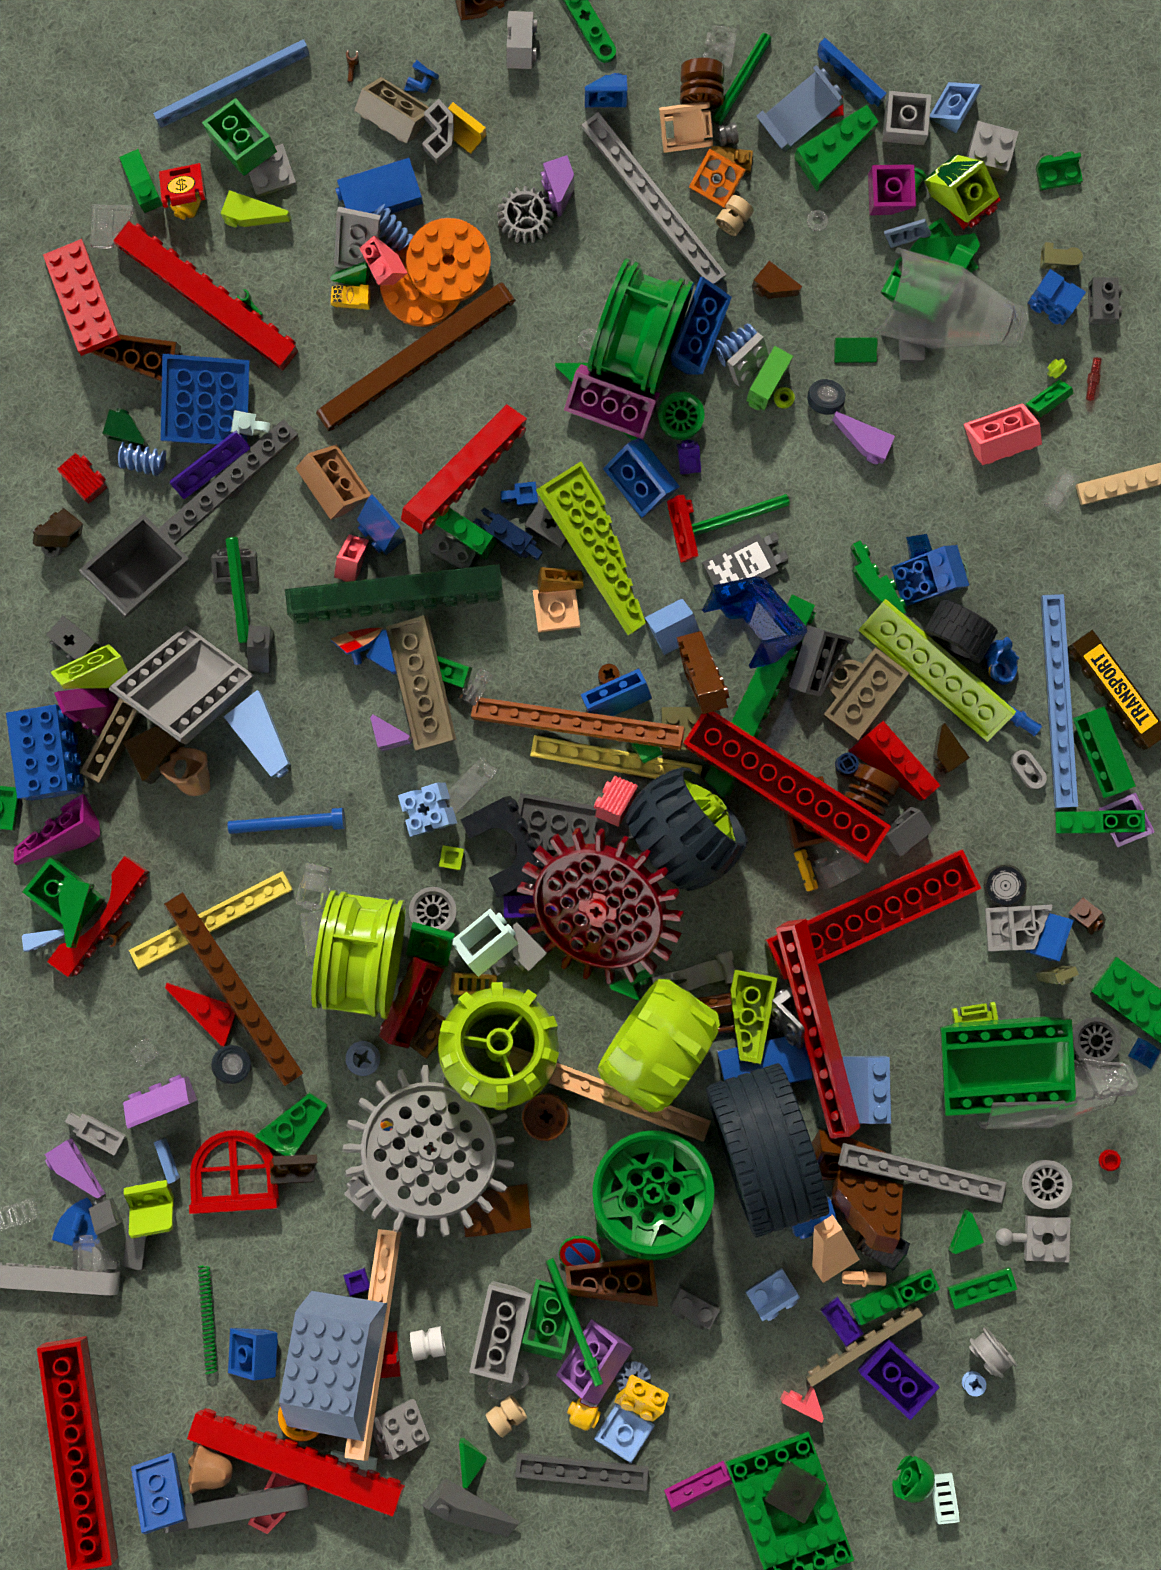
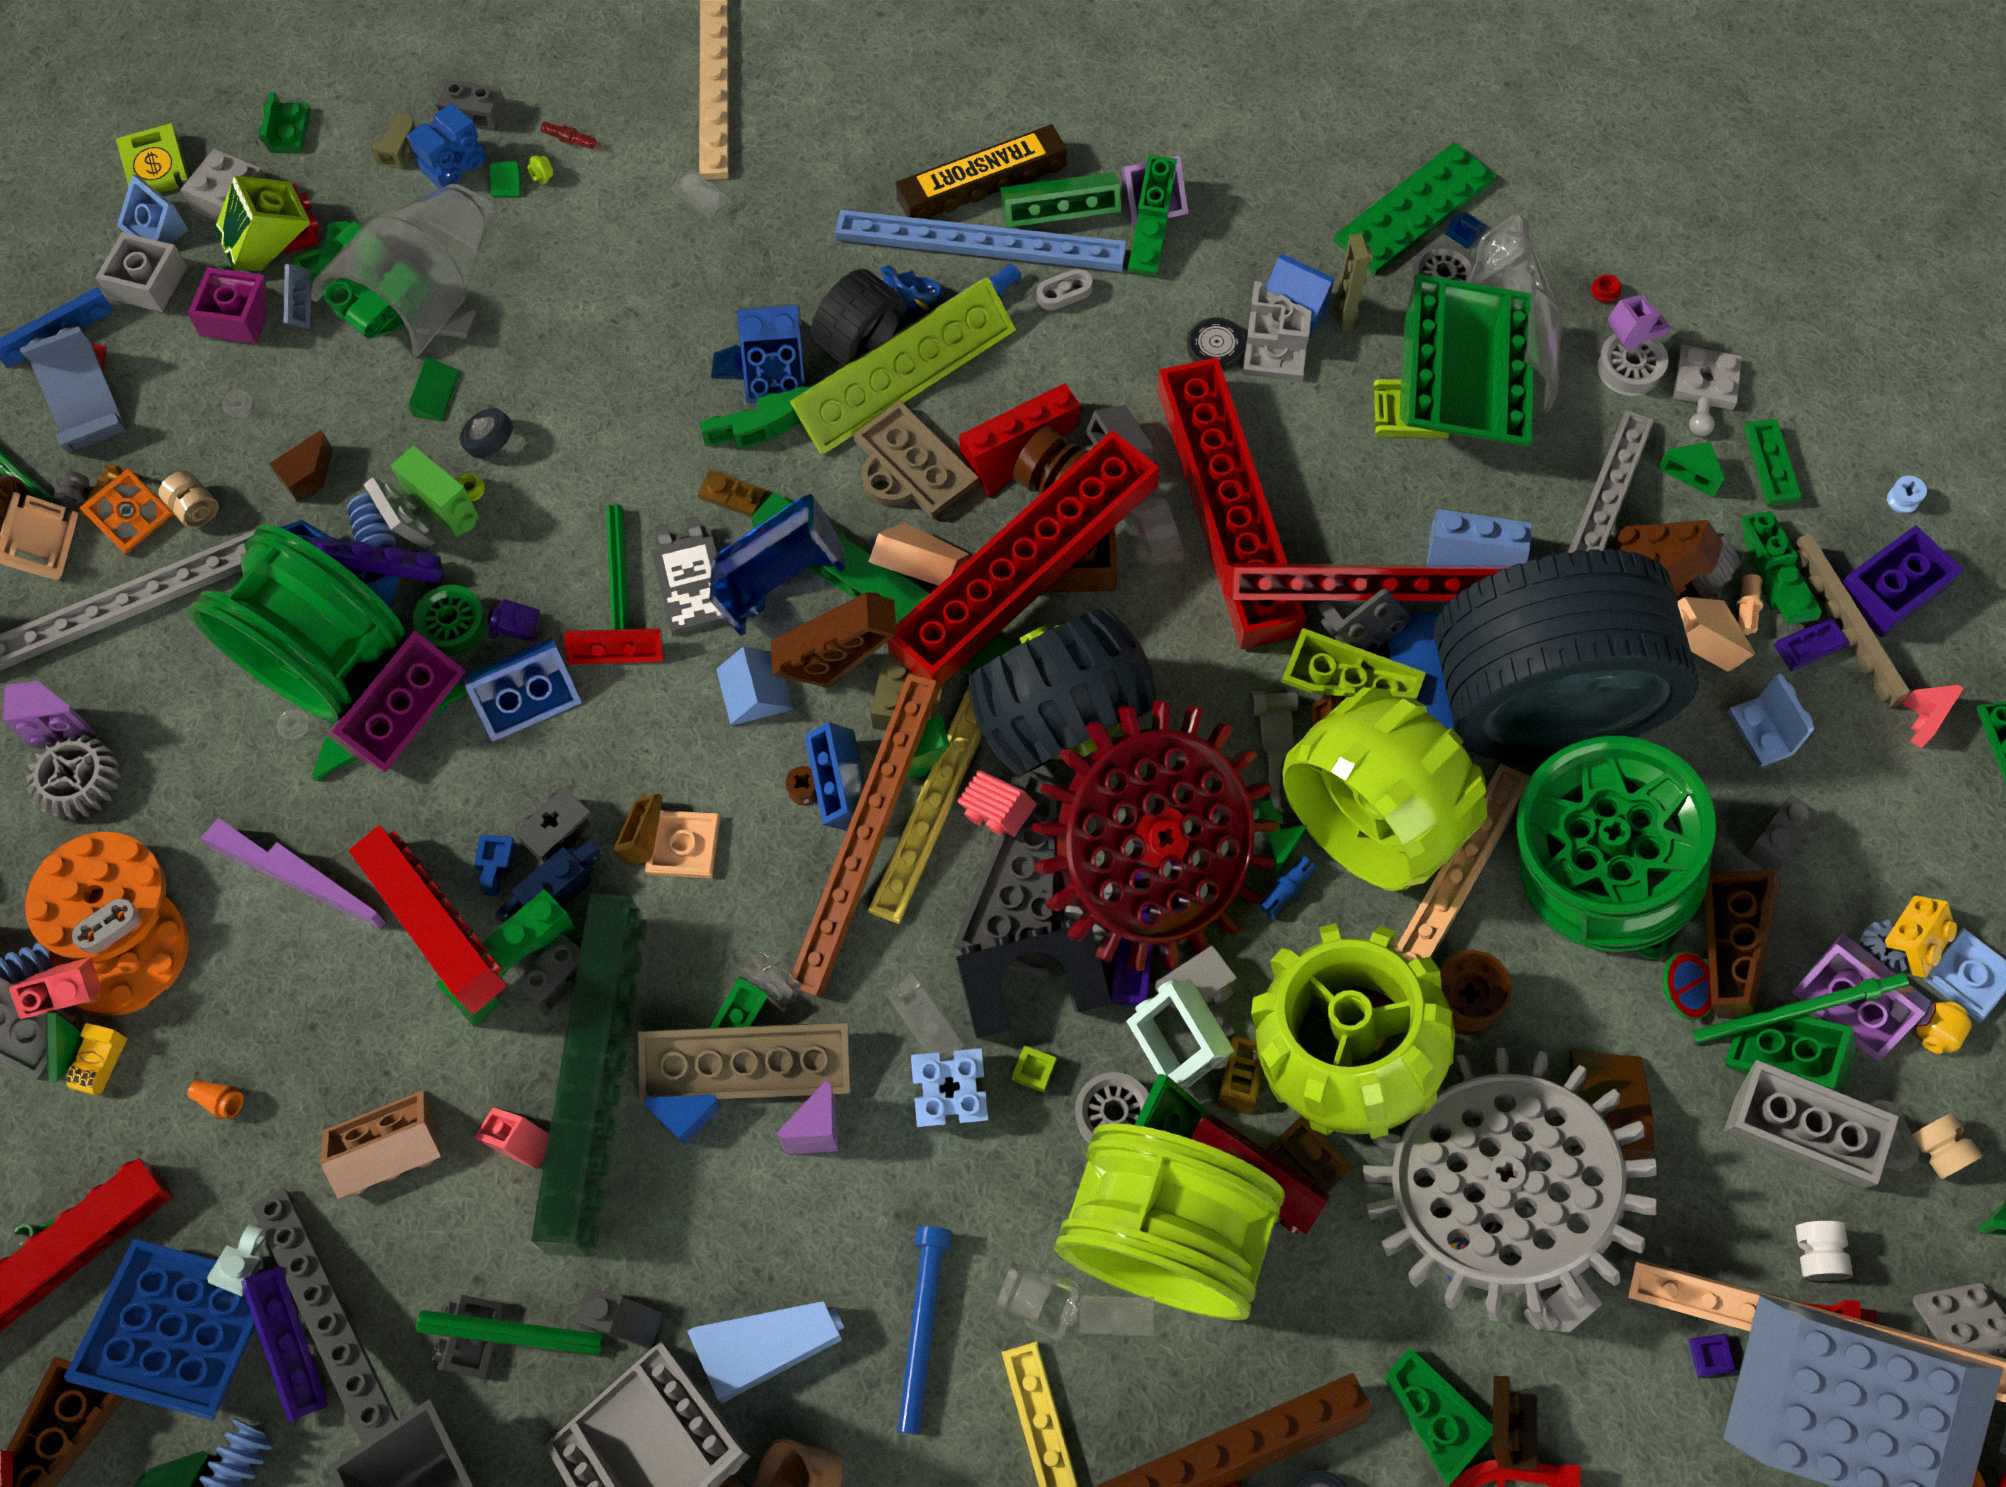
camera: 75 degrees left, 20 degrees down
(342, 376) = (217, 1098): none -> orange cone
(353, 1061) = (1355, 1273): sand blue gear -> none
(356, 642) = (651, 1152): shield -> none
(380, 526) = (473, 1071): blue slope -> none
(415, 355) = (228, 987): reddish brown beam -> none
(423, 279) = (106, 926): none -> light grey beam
(490, 370) = (287, 869): none -> medium lavender slope
(582, 518) = (542, 777): lime wing -> none
(599, 995) = (1288, 887): none -> blue pin
(709, 355) = (381, 560): none -> dark purple plate
(786, 713) = (916, 554): none -> light nougat slope
(806, 870) = (1149, 577): yellow axle -> none
(815, 575) = (731, 493): none -> pearl gold plate
(817, 660) = (852, 502): dark grey wedge -> none
(834, 146) = (145, 369): green wedge -> none
(843, 765) = (1012, 504): dark blue wheel -> none
(867, 439) = (560, 396): medium lavender slope -> none
(947, 750) = (1016, 374): dark brown slope -> none
(992, 1352) = (1867, 456): light grey wheel -> none
(1003, 434) = (607, 239): coral slope -> none
(1004, 90) = (154, 162): none -> lime container
(1043, 346) = (505, 179): none -> green slope
(1049, 398) = (577, 182): green plate -> none
(1070, 1183) = (1636, 321): none -> medium lavender brick
(1088, 916) = (1267, 255): reddish brown bracket -> none

